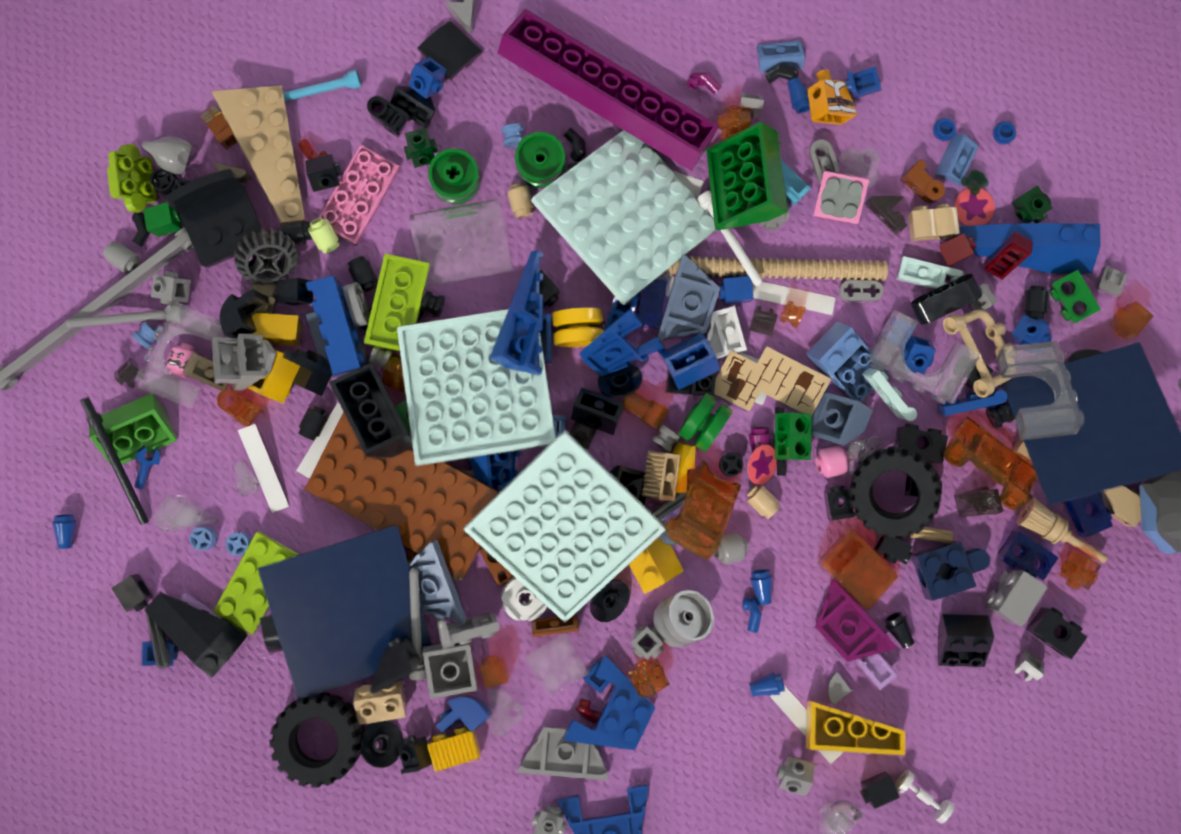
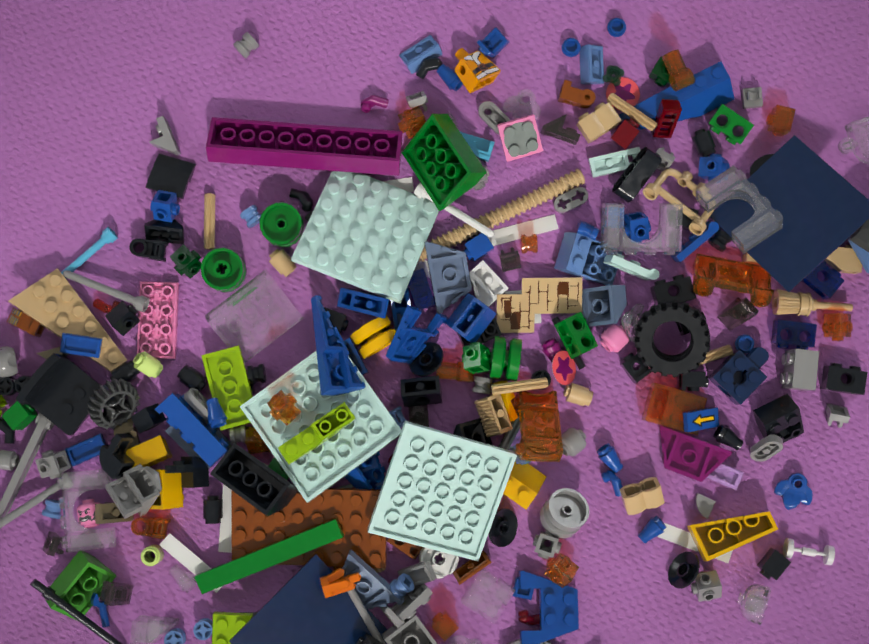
camera: 25 degrees left, 0 degrees up
(166, 458) = (116, 593): none -> clear smoke slope
(212, 291) = (85, 450): none -> blue tile
(218, 437) = (147, 558): none -> yellowish green brick
(264, 178) = (81, 345): none -> blue tile
(347, 502) = (269, 556): none -> green tile
(348, 165) = (139, 302): none -> light grey piece
(368, 322) = (216, 415): none -> blue cone
(401, 567) = (336, 584): none -> orange rock
(443, 350) = (284, 407): none -> clear orange brick
(464, 396) = (316, 433): none -> lime slope
(466, 118) = (209, 221): none -> tan axle
(470, 606) = (401, 585): none -> medium blue wheel
(493, 602) = (420, 573): none -> light grey tile
(584, 284) = (363, 302): none -> blue slope
(674, 405) = (476, 358): none -> green brick
(705, 458) = (518, 386): none -> tan axle
(775, 644) = (642, 496): none -> tan brick
(780, 746) = (683, 570): none -> black dish
(863, 330) = (587, 230): none -> blue plate
(880, 595) = (701, 419): none -> blue tile
(936, 662) = (766, 448): none -> light grey plate
(939, 727) = (794, 494): none -> blue plate
(970, 538) = (744, 343): none -> blue plate
(975, 230) = (632, 112): none -> tan axle
(1048, 215) = (679, 75): none -> clear orange piece

